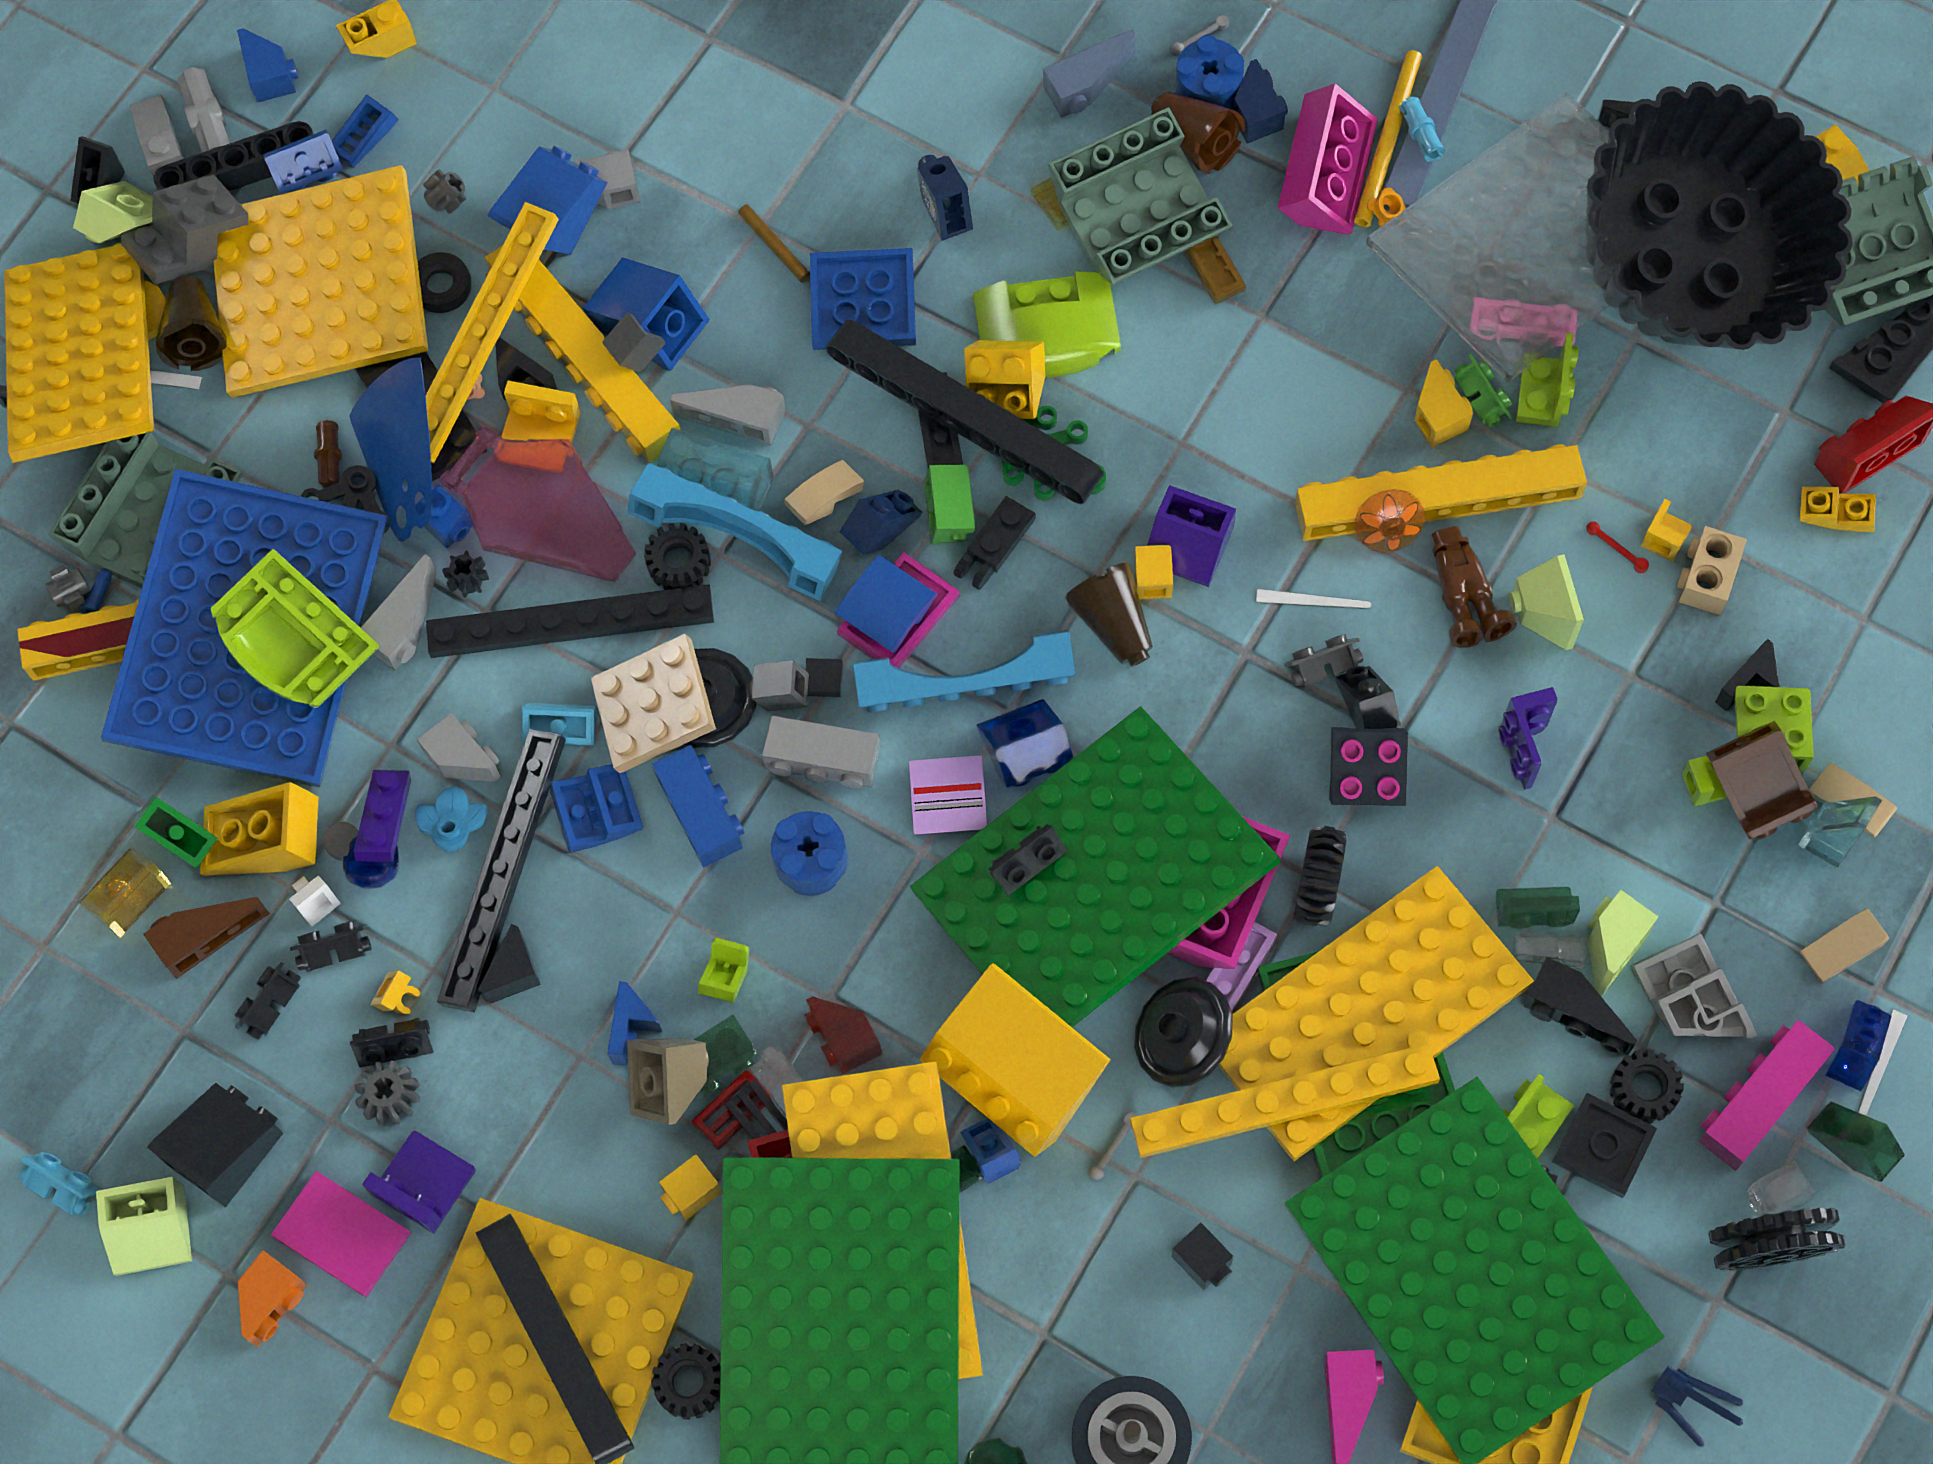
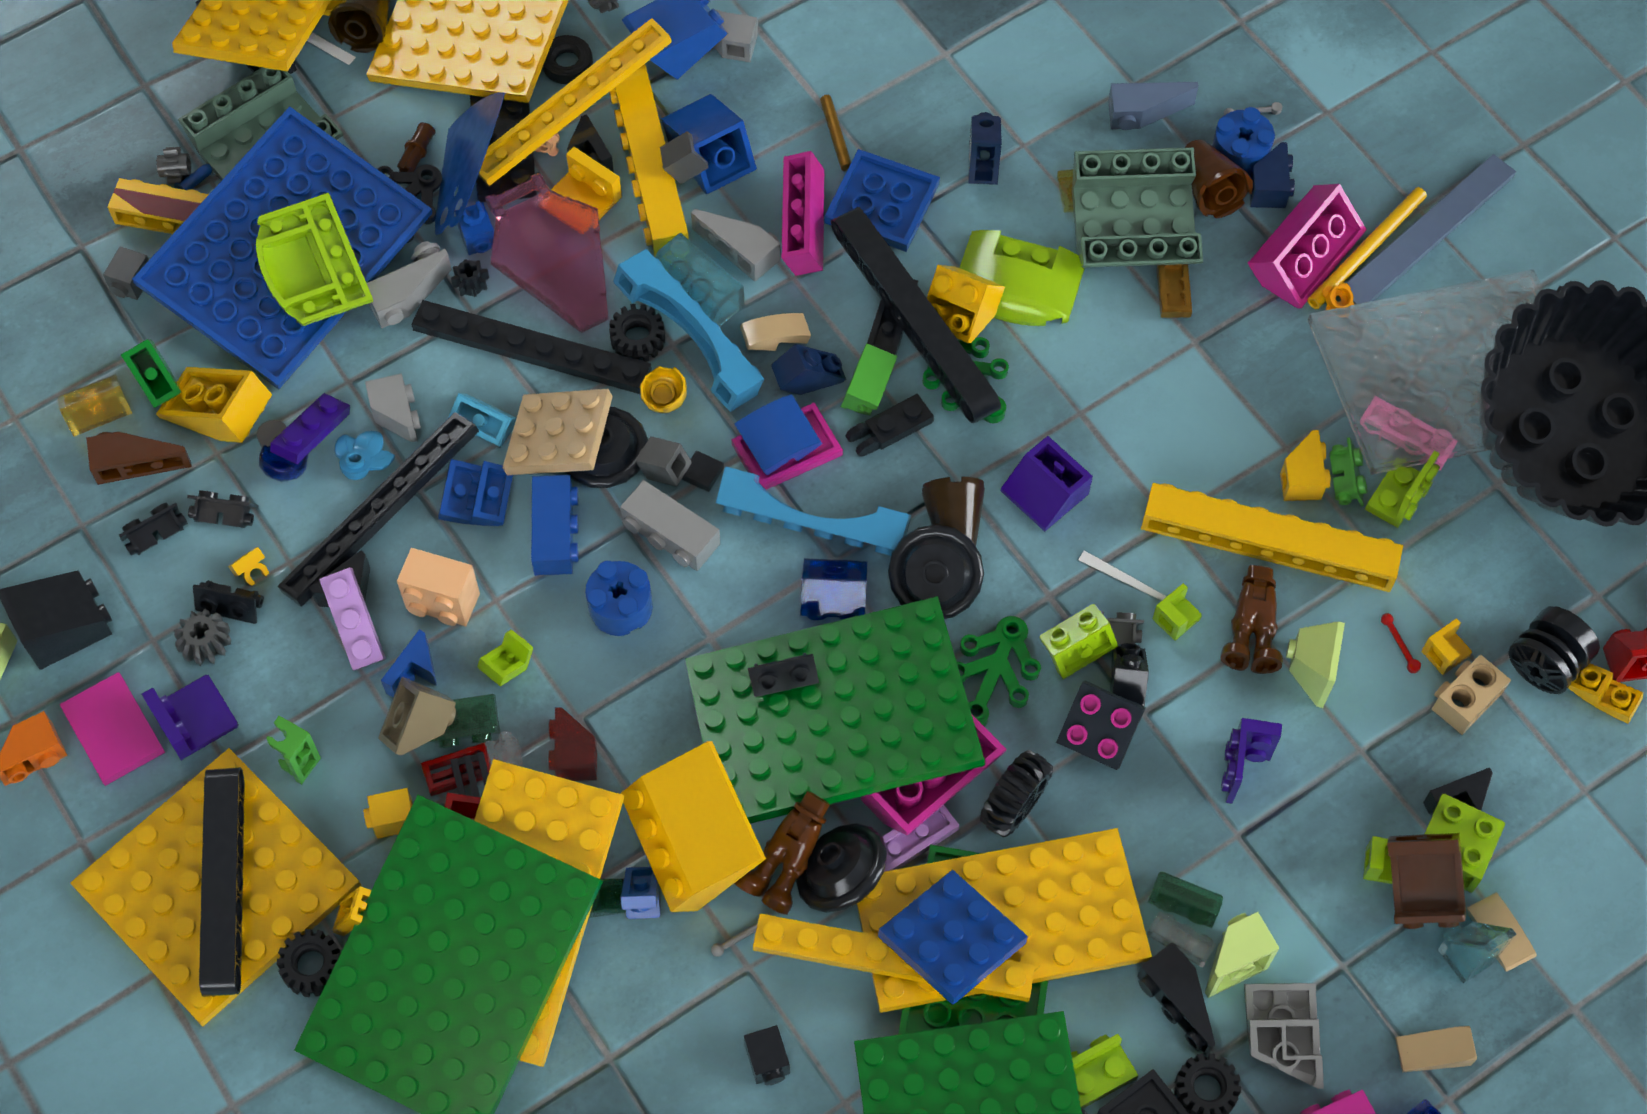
camera: 20 degrees right, 5 degrees down
(82, 731) = (121, 270): none -> dark grey brick
(313, 899) = (226, 469): white tile -> none
(401, 566) = (424, 249): none -> light grey plate
(540, 1001) = (352, 618): none -> lavender plate
(557, 1164) = (296, 748): none -> bright green hinge
(615, 928) = (438, 587): none -> light nougat brick
(707, 1316) = (352, 906): none -> yellow tile
(739, 607) = (663, 389): none -> yellow hair
(789, 350) = (803, 213): none -> dark pink brick
(947, 794) = (752, 601): lavender slope -> none
(1119, 674) = (934, 564): none -> black piece
(1125, 1033) = (792, 847): none -> reddish brown piece
(1154, 571) = (1003, 500): yellow panel -> none
(1231, 748) = (998, 664): none -> green plant
(1303, 687) = (1079, 640): none -> lime bracket
(1335, 1052) = (952, 936): none -> blue plate
(1384, 616) = (1176, 613): none -> lime panel
(1385, 510) = (1220, 529): clear orange dish -> none
(1422, 129) = (1397, 249): medium azure pin -> none
(1774, 489) = (1554, 650): none -> black wheel

